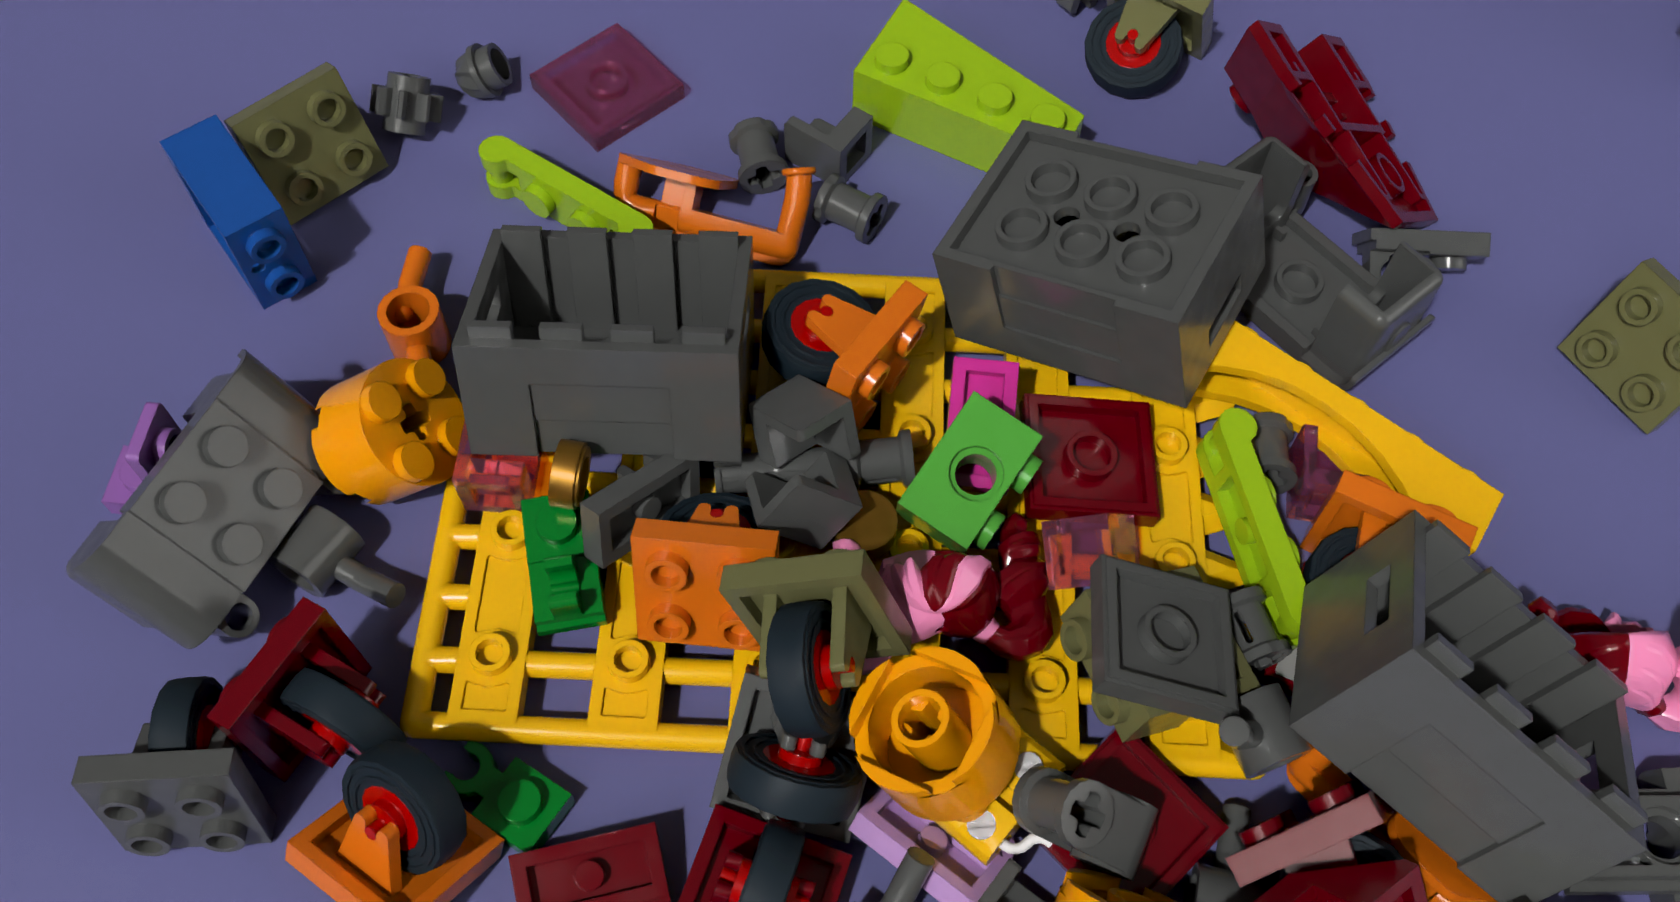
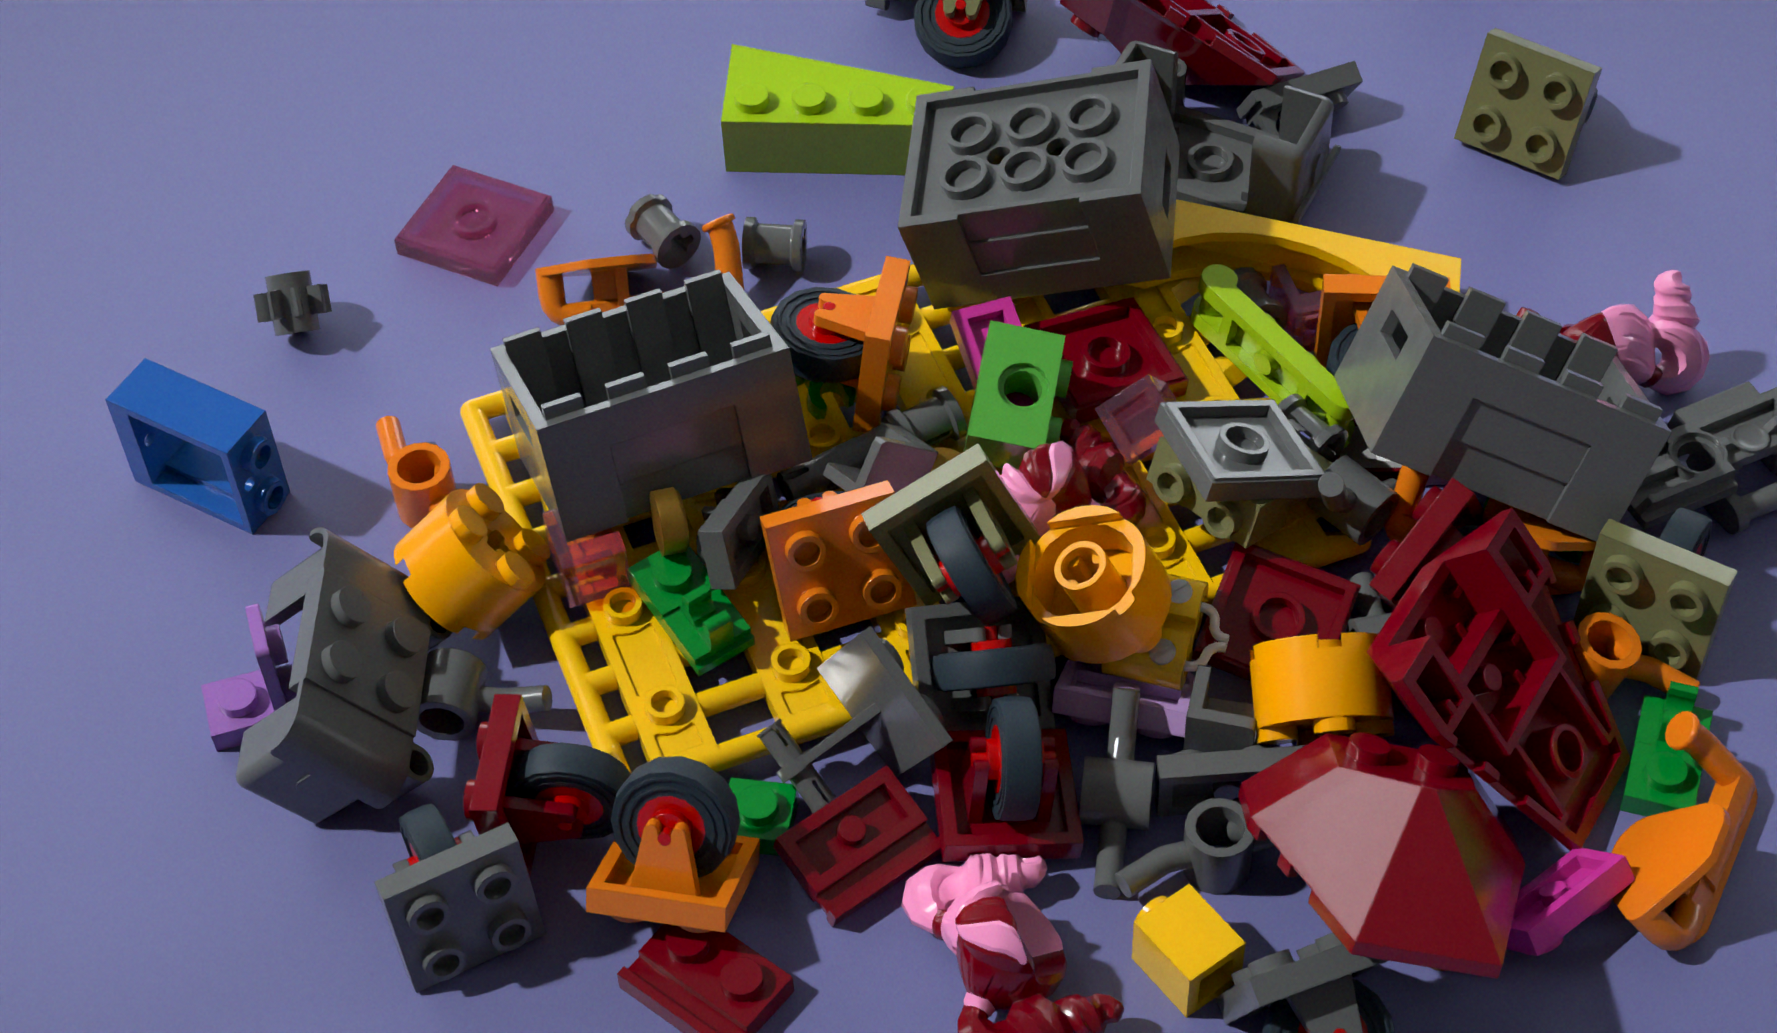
camera: 20 degrees left, 10 degrees down
(307, 142) = (229, 348): olive plate -> none
(483, 71) = (346, 252): dark grey plate -> none
(552, 190) = (470, 324): lime plate -> none
(672, 738) = (883, 704): none -> dark grey plate
(799, 417) = (849, 402): dark grey panel -> none
(830, 147) = (740, 195): dark grey panel -> none
(1085, 819) = (1243, 605): dark grey piece -> none

